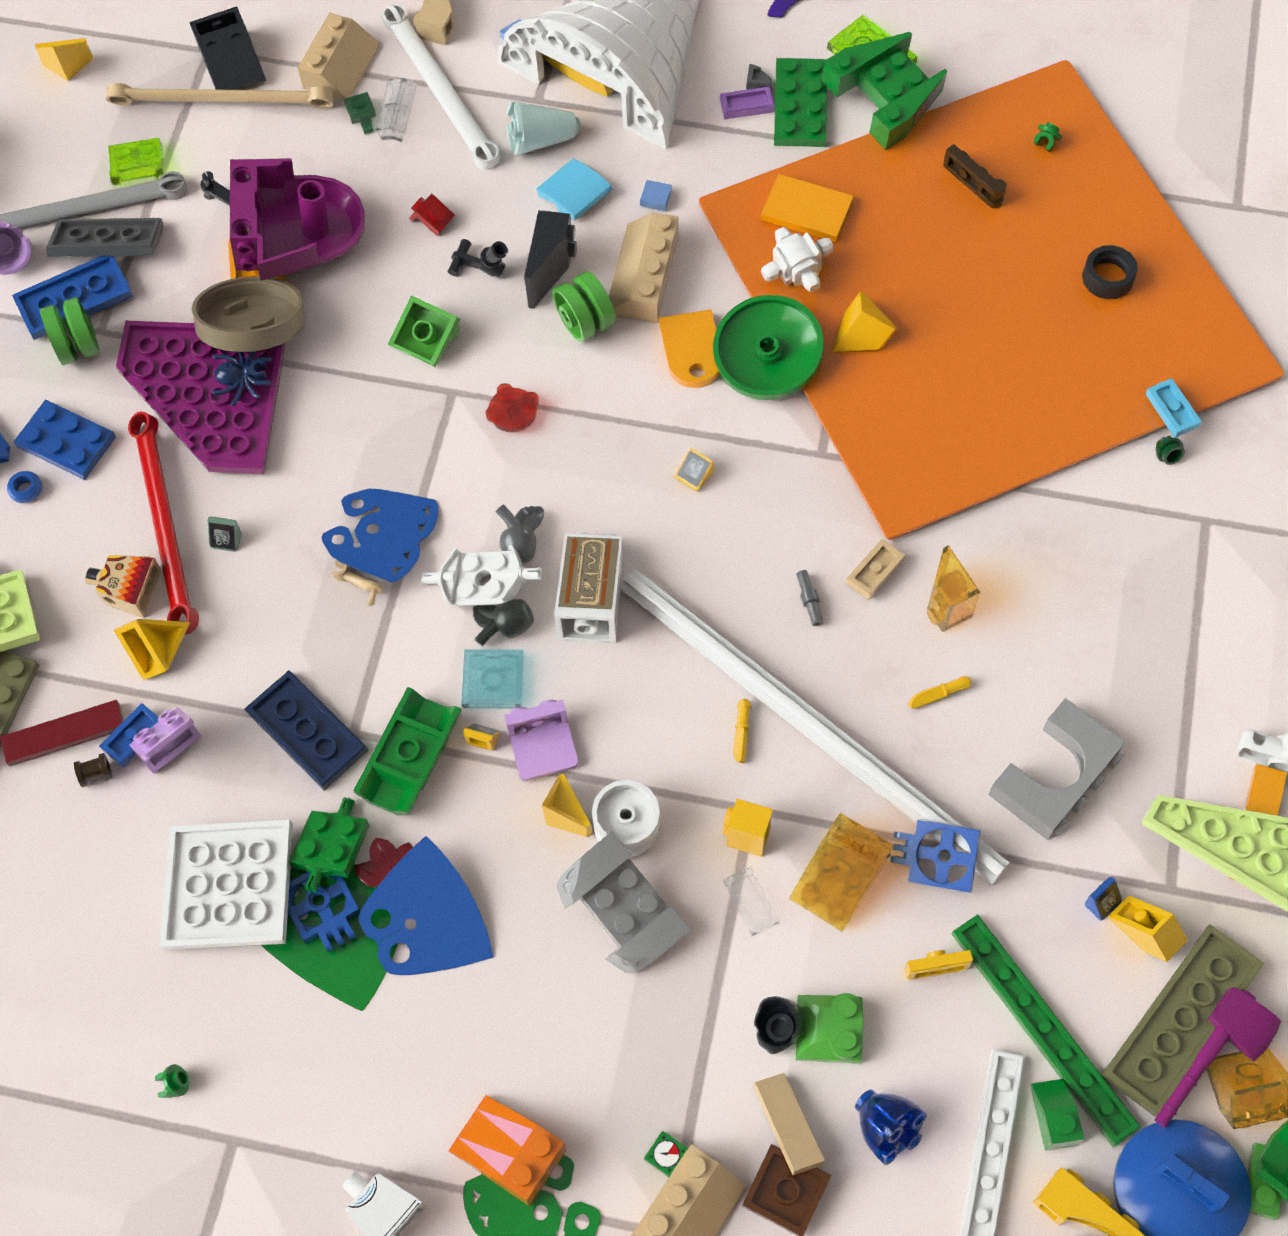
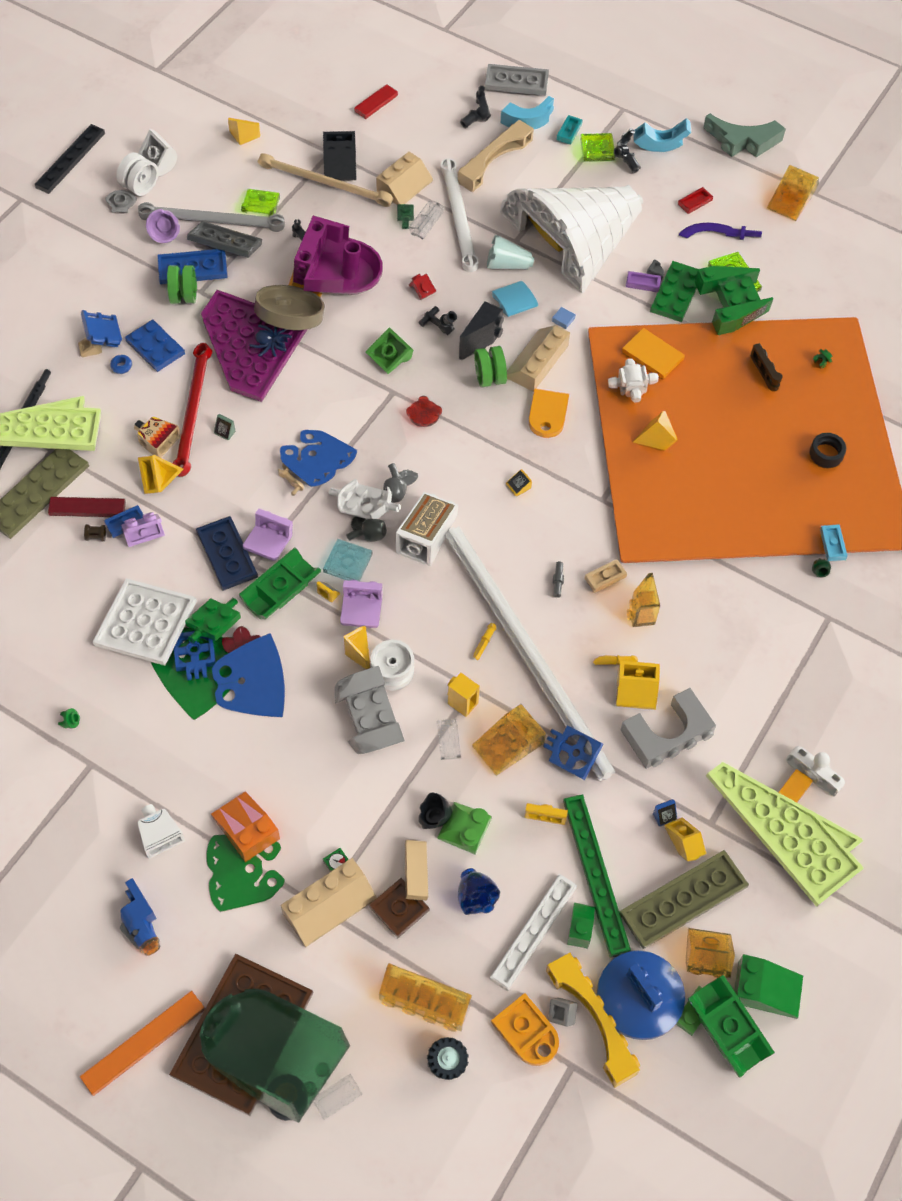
camera: 15 degrees right, 5 degrees down
(360, 681) = (269, 535): none -> lavender bracket
(768, 347) = (593, 425): green dish -> none
(989, 720) = (637, 684): none -> yellow slope
(1235, 1020) = (716, 909): magenta piece -> none

